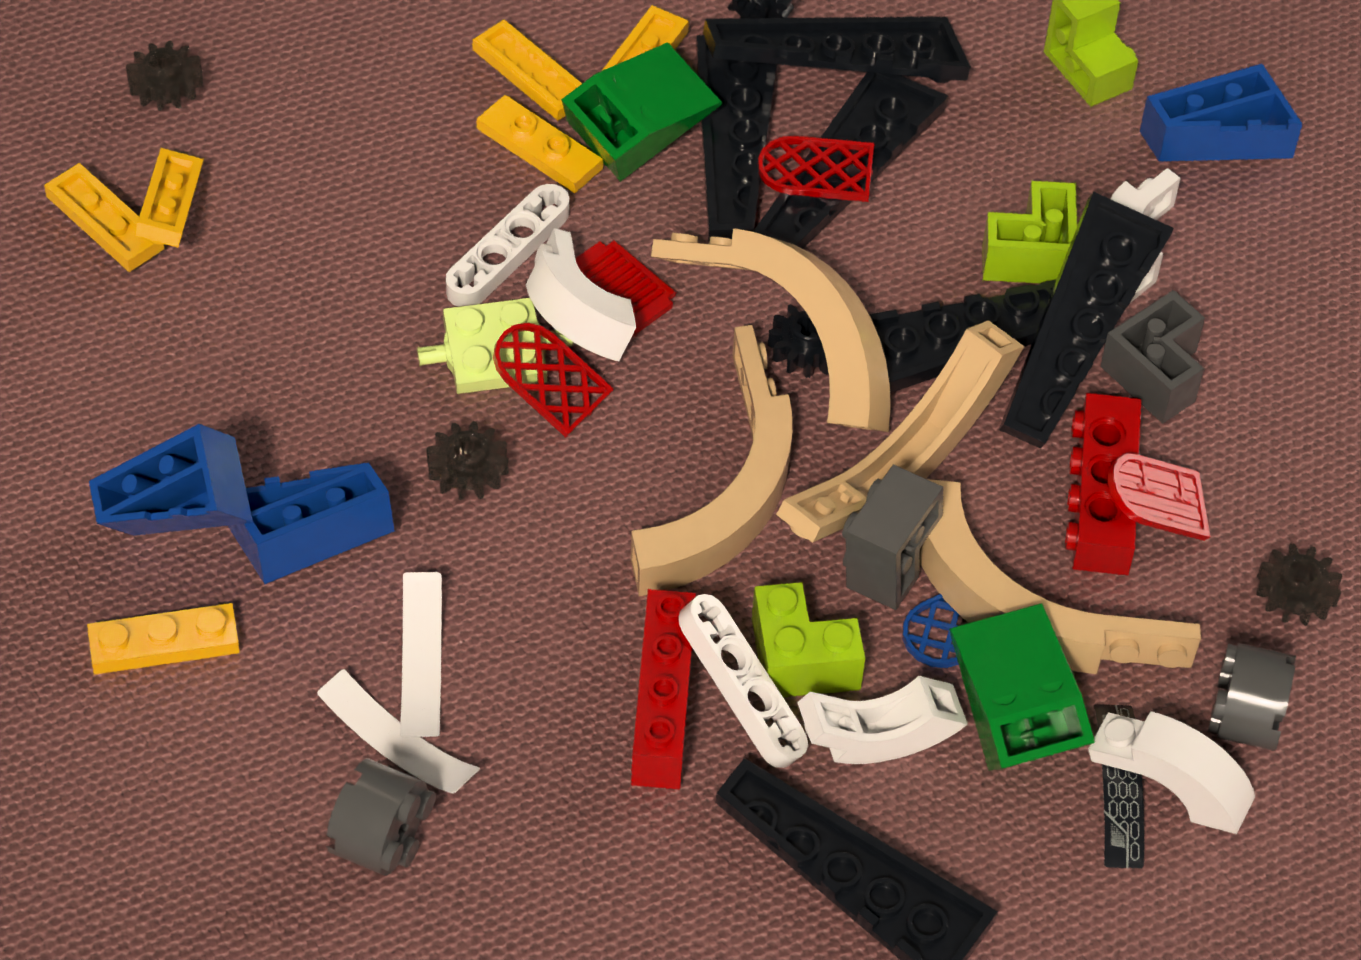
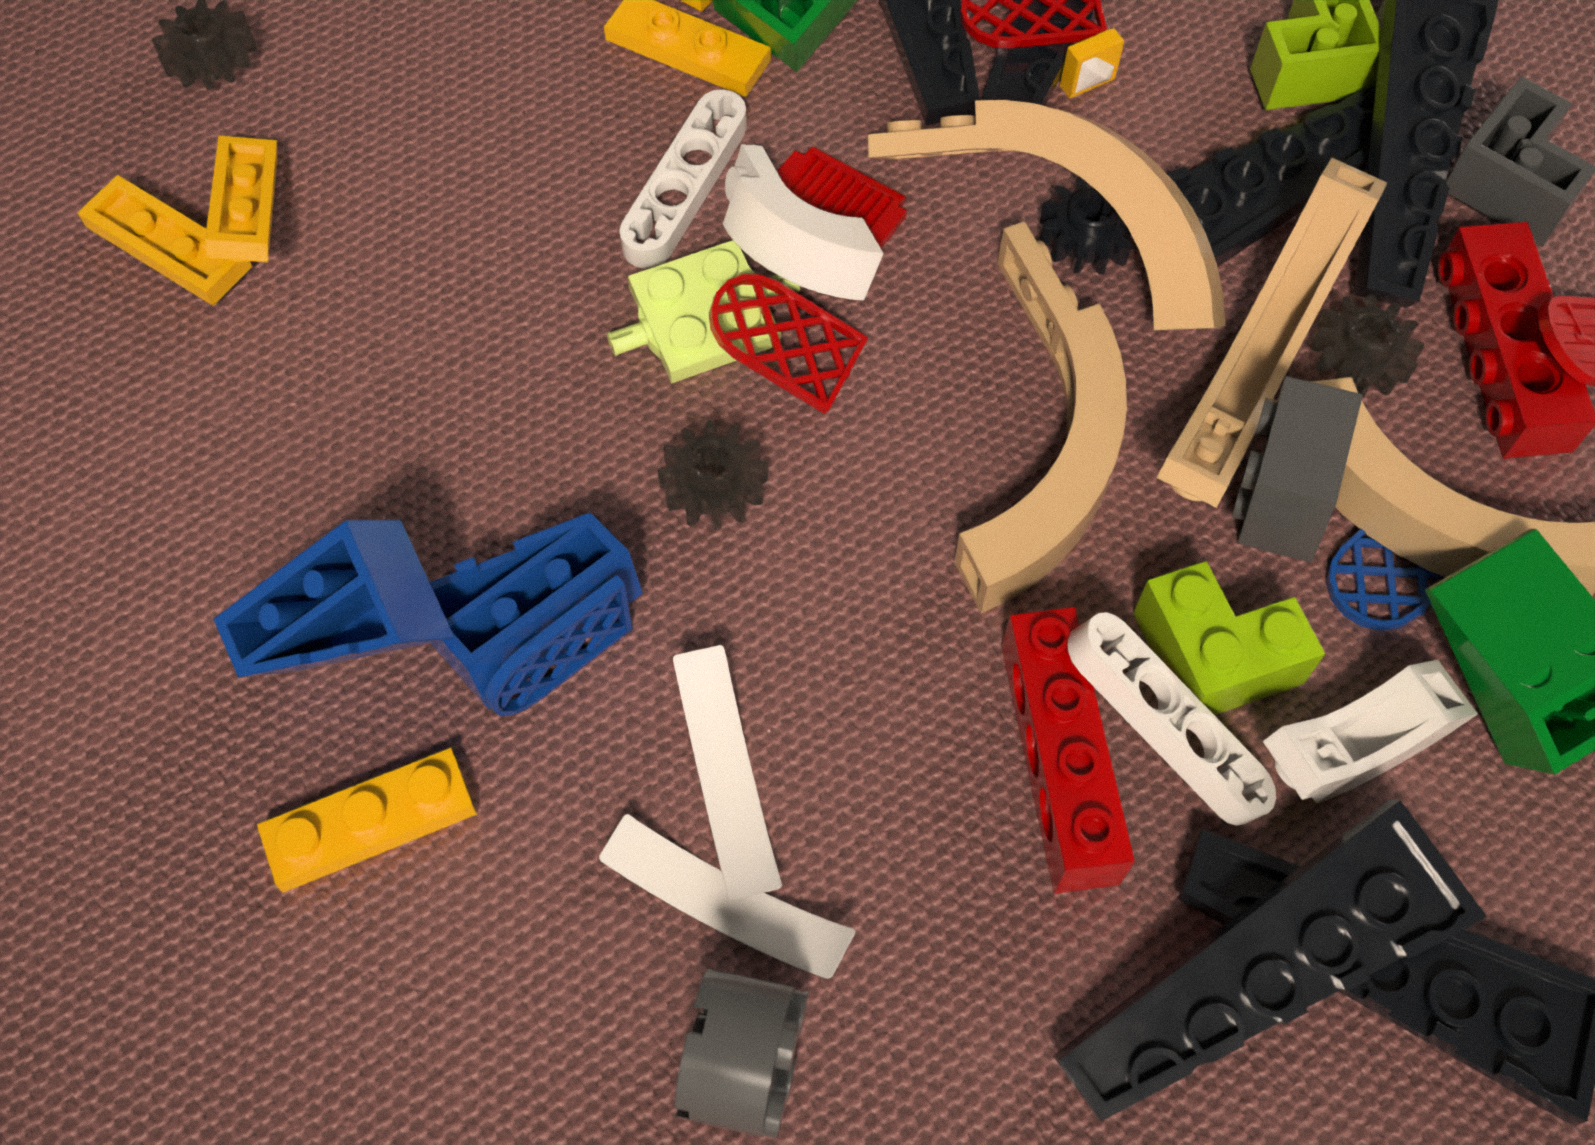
camera: 10 degrees left, 10 degrees up
(319, 535) = (557, 634): none -> blue window
(790, 831) = (1317, 932): none -> black wing
(851, 218) = (1091, 62): none -> yellow tile
(989, 466) = (1367, 345): none -> clear smoke gear

